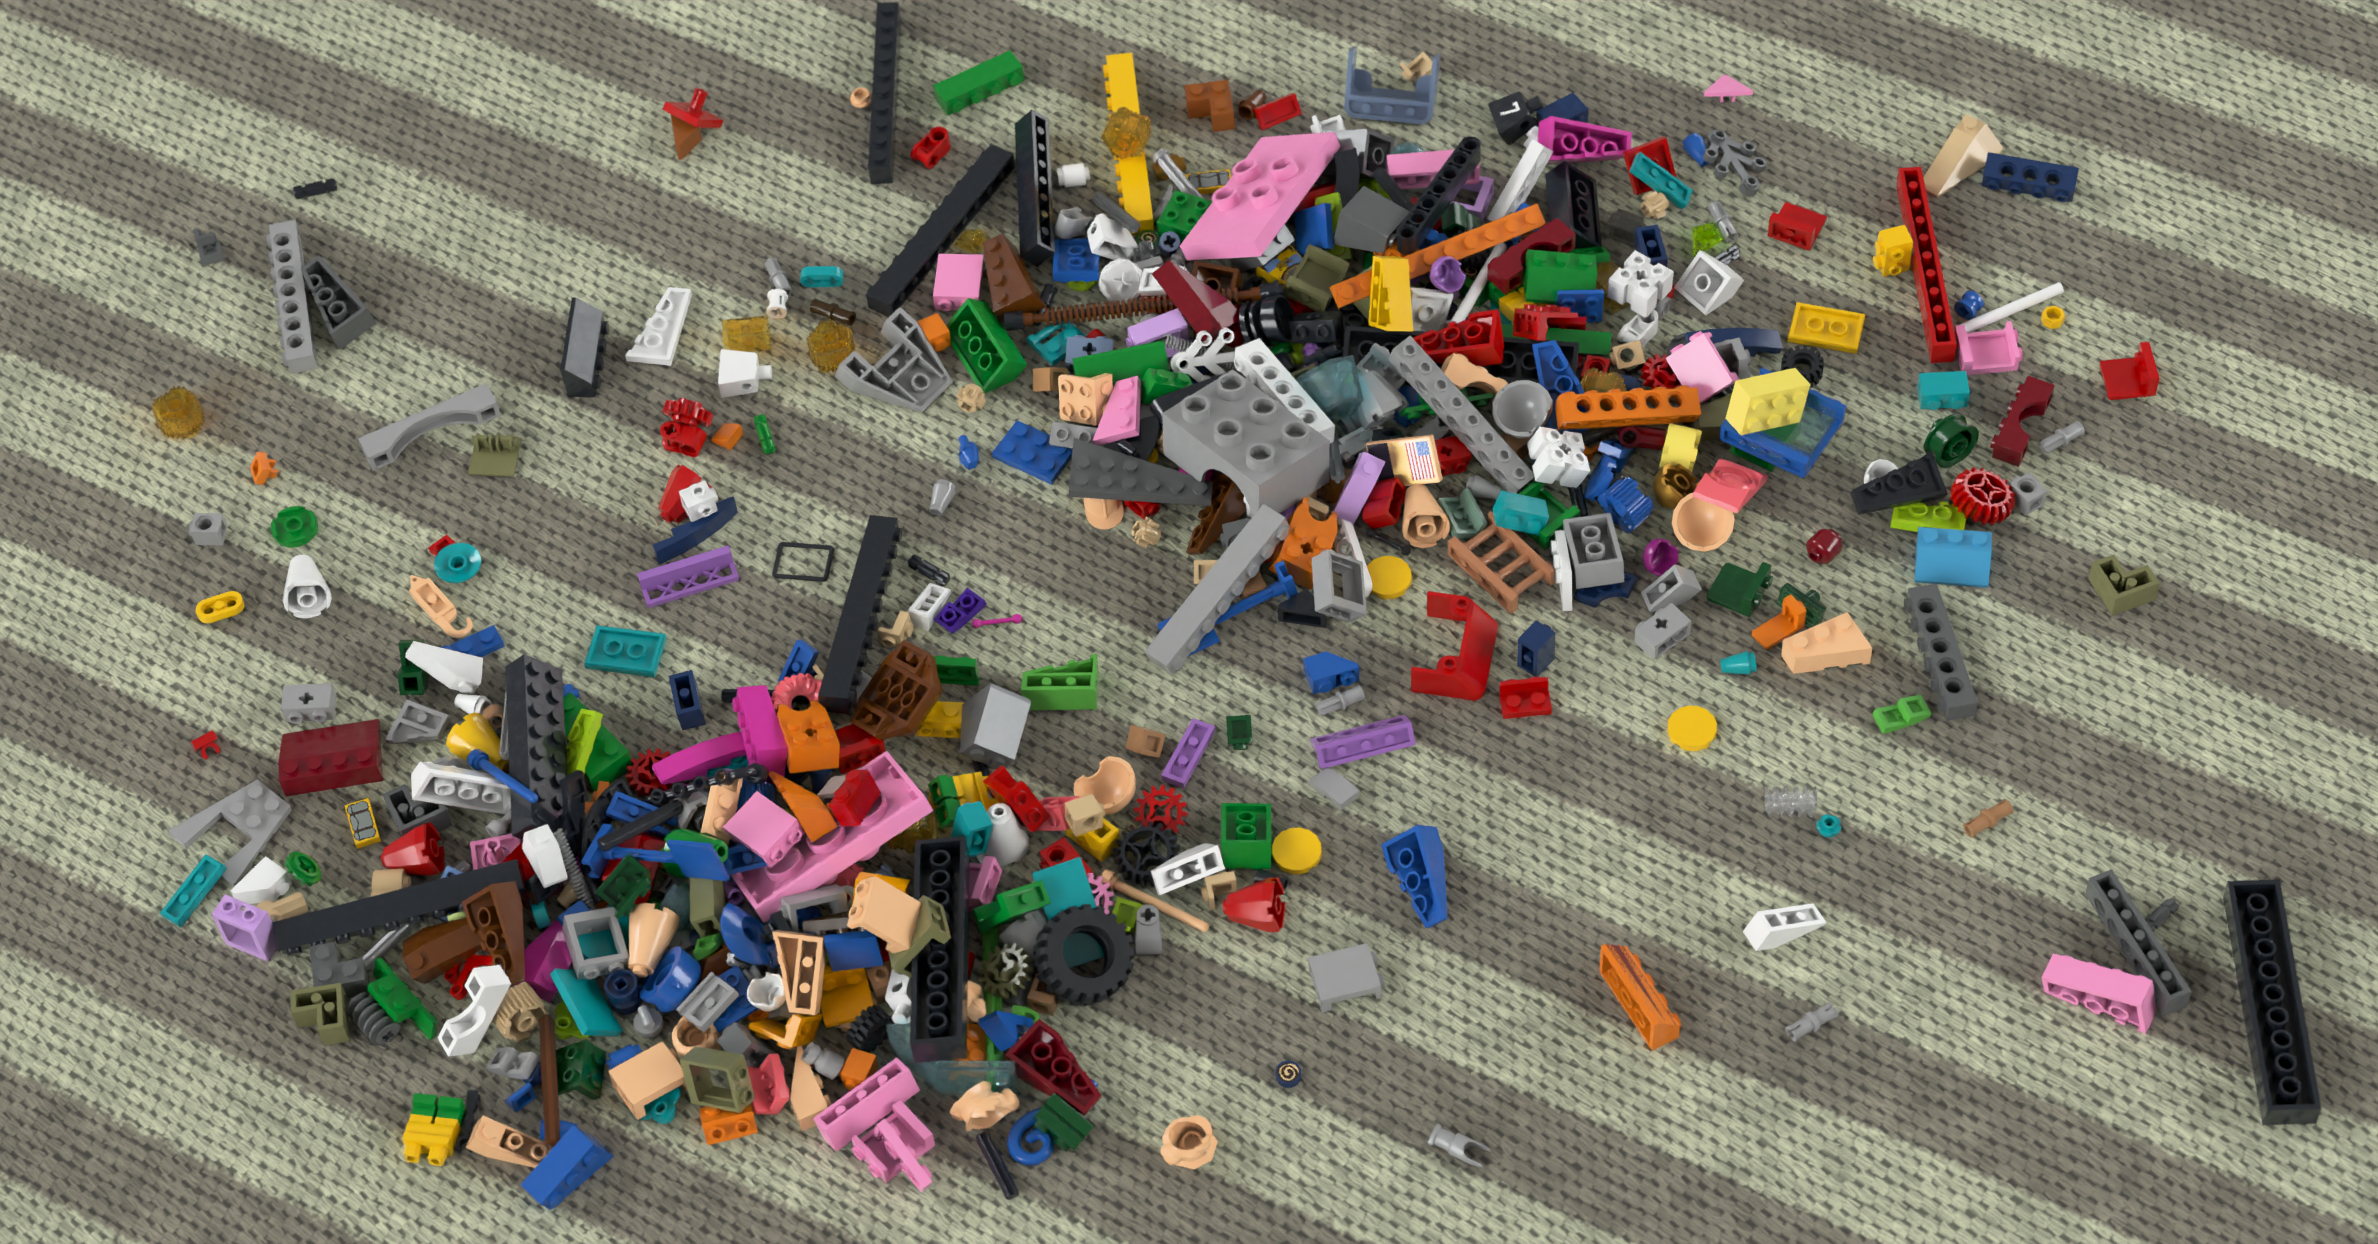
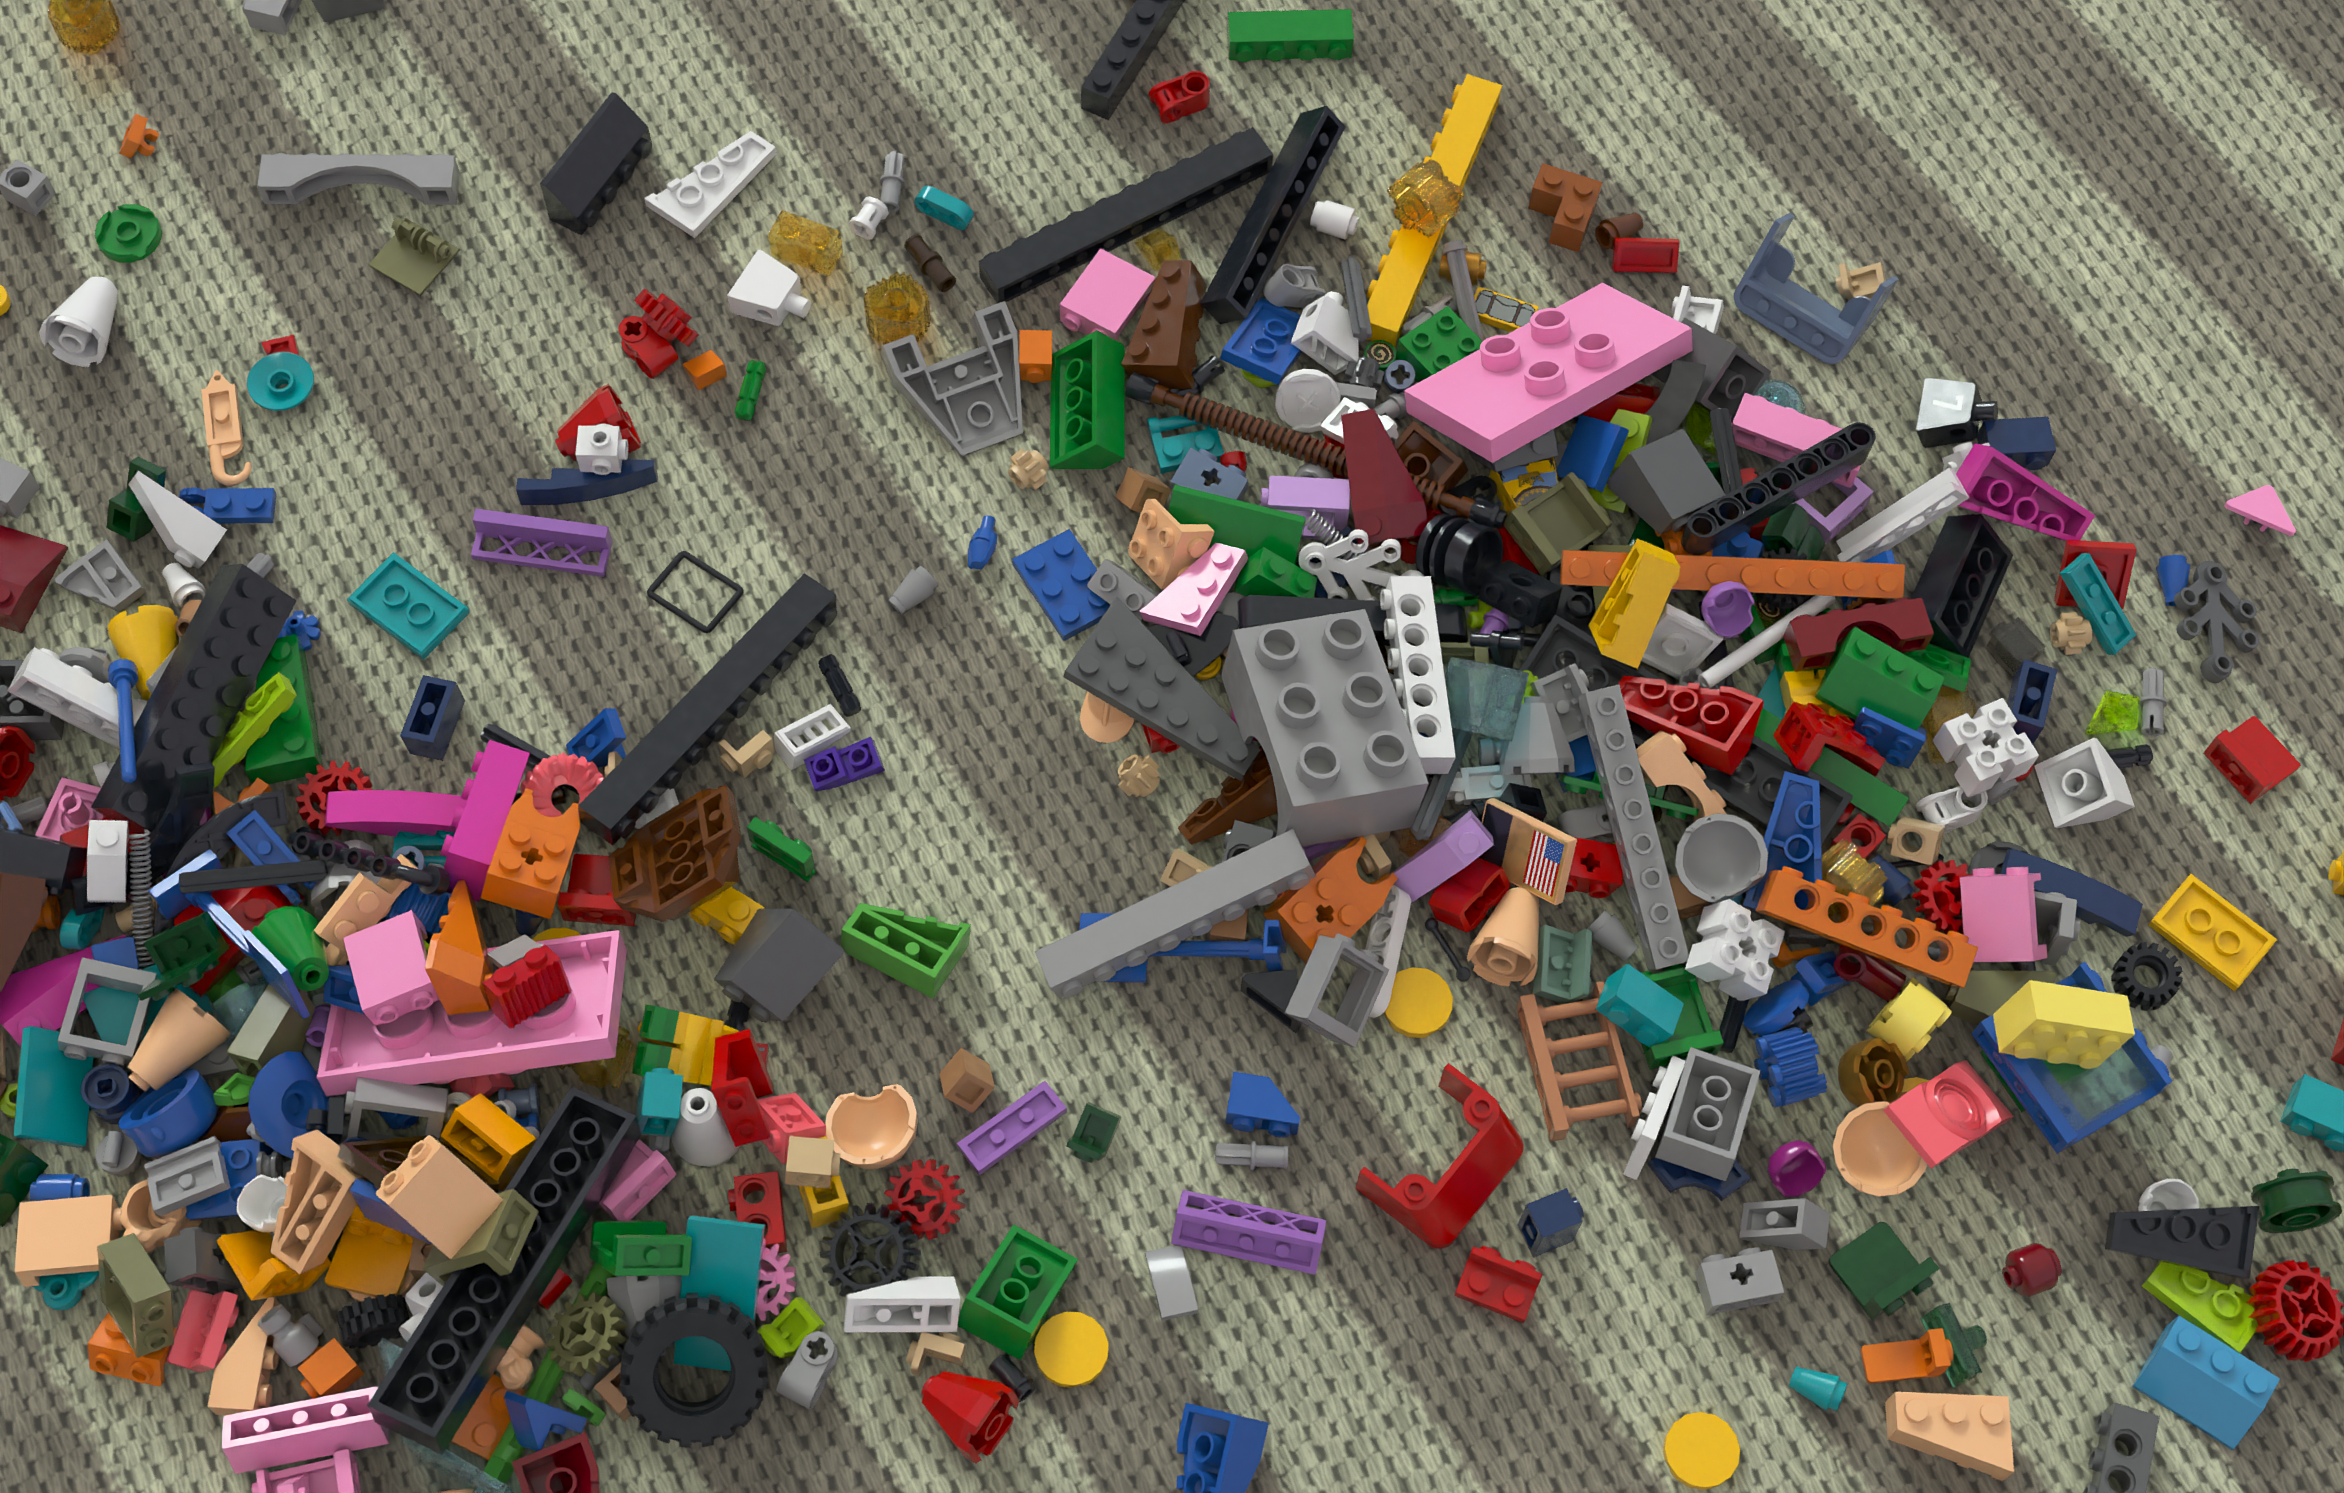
camera: 20 degrees right, 10 degrees up
(1017, 618) = (909, 811): dark pink hinge -> none
(1111, 878) = (807, 1267): light nougat piece -> none

